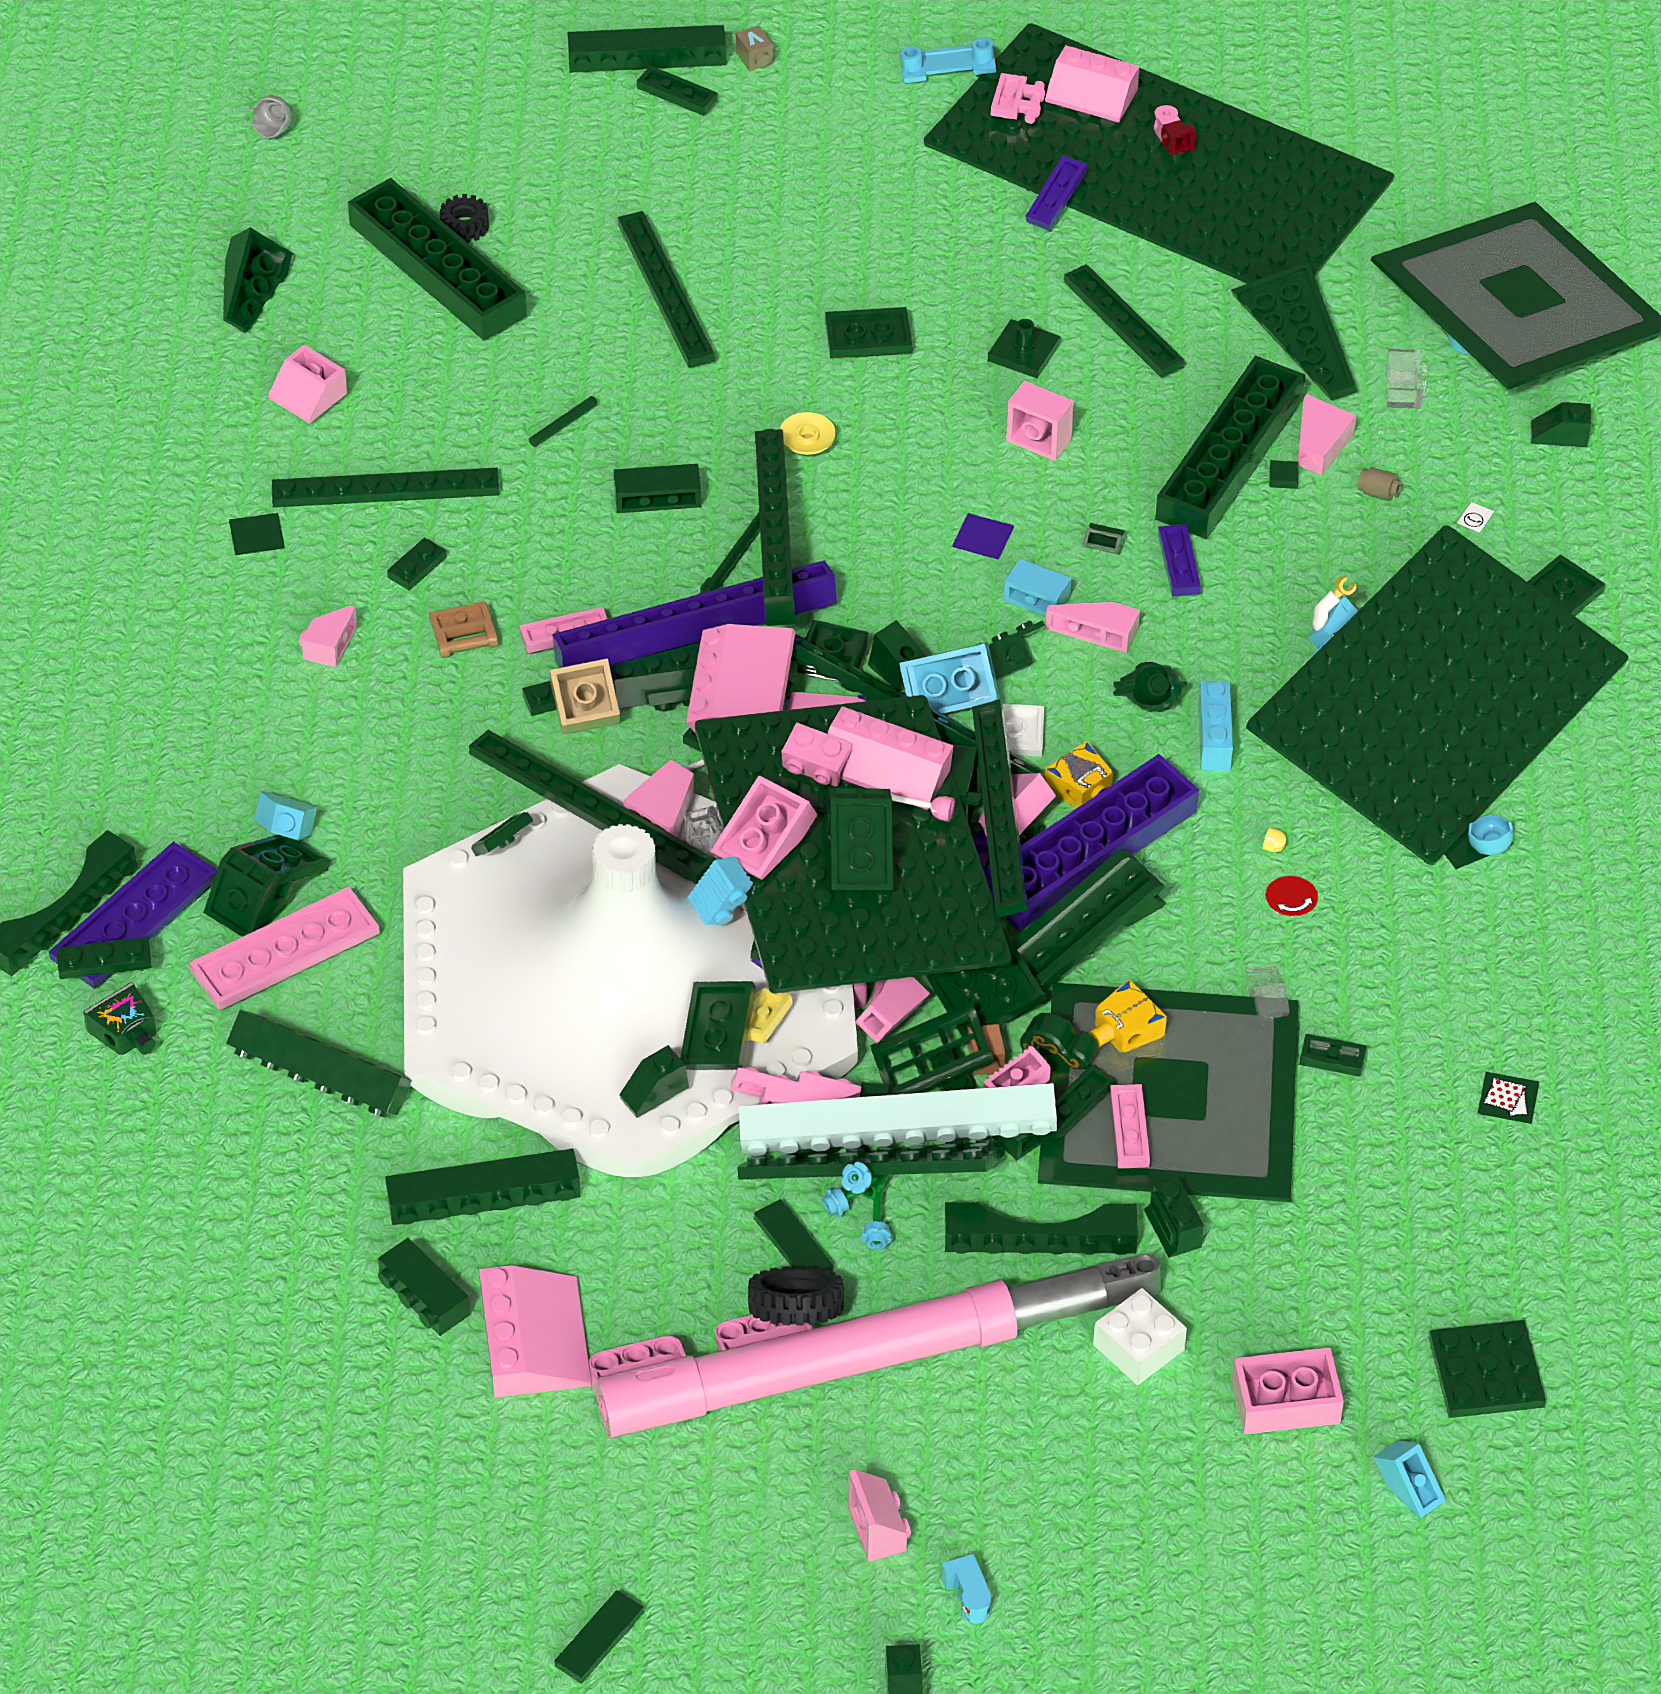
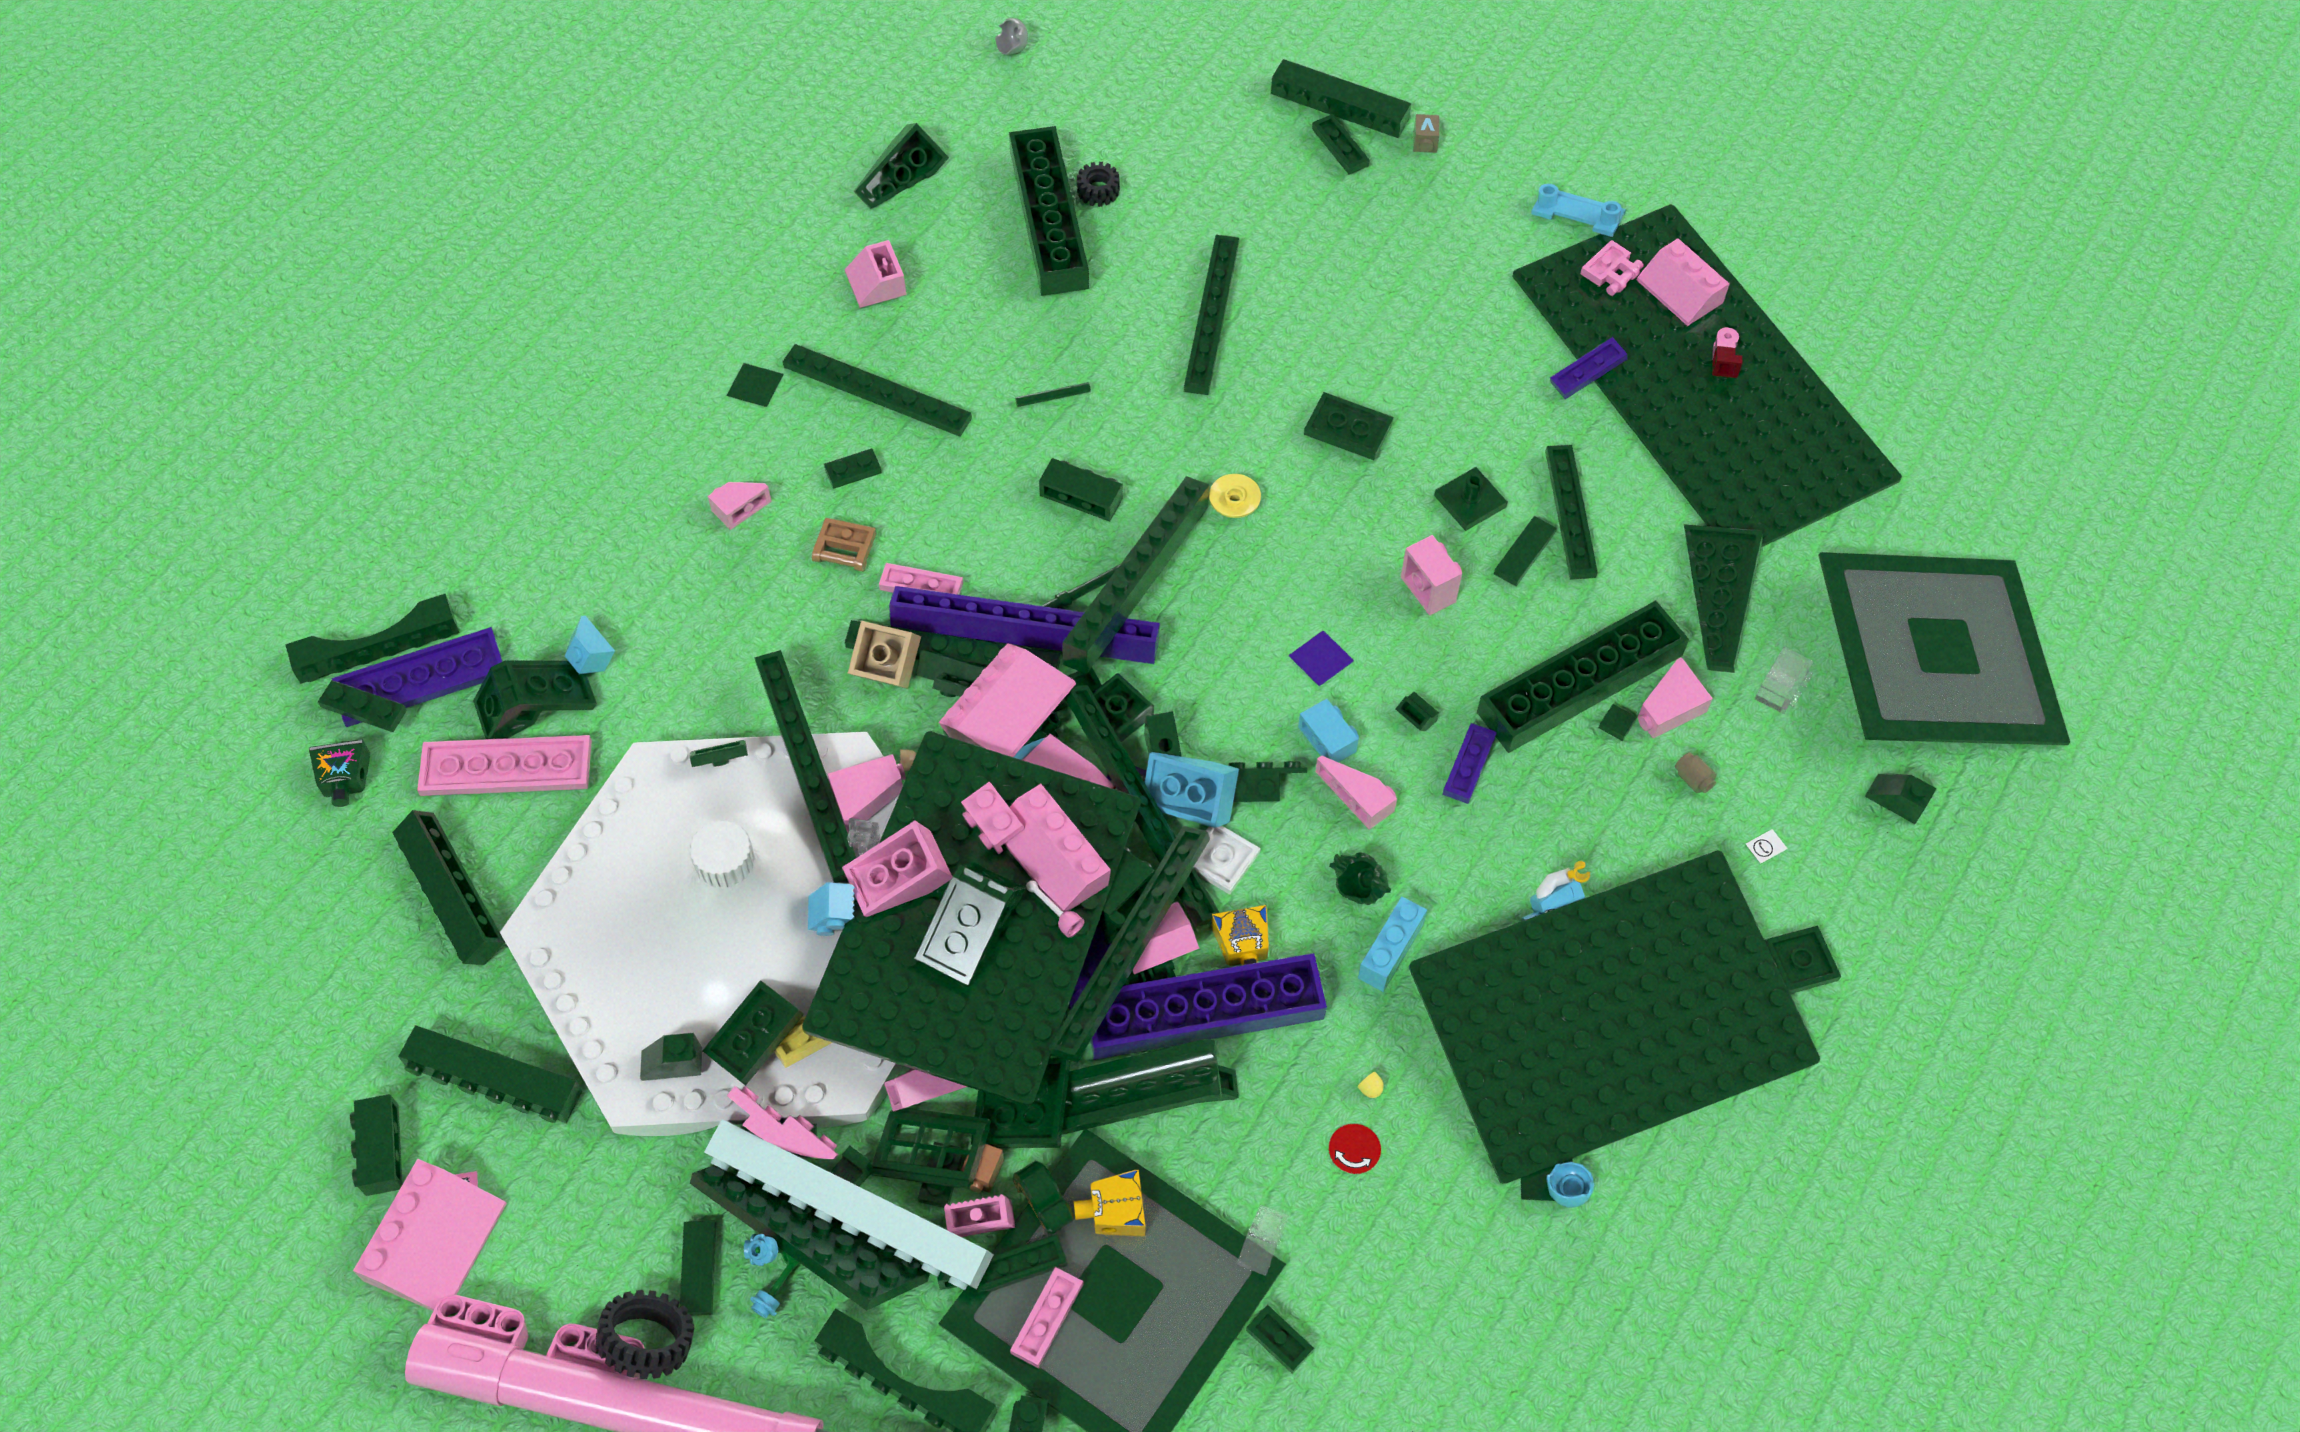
camera: 30 degrees right, 10 degrees up
(1104, 371) = (1525, 551): none -> dark green tile

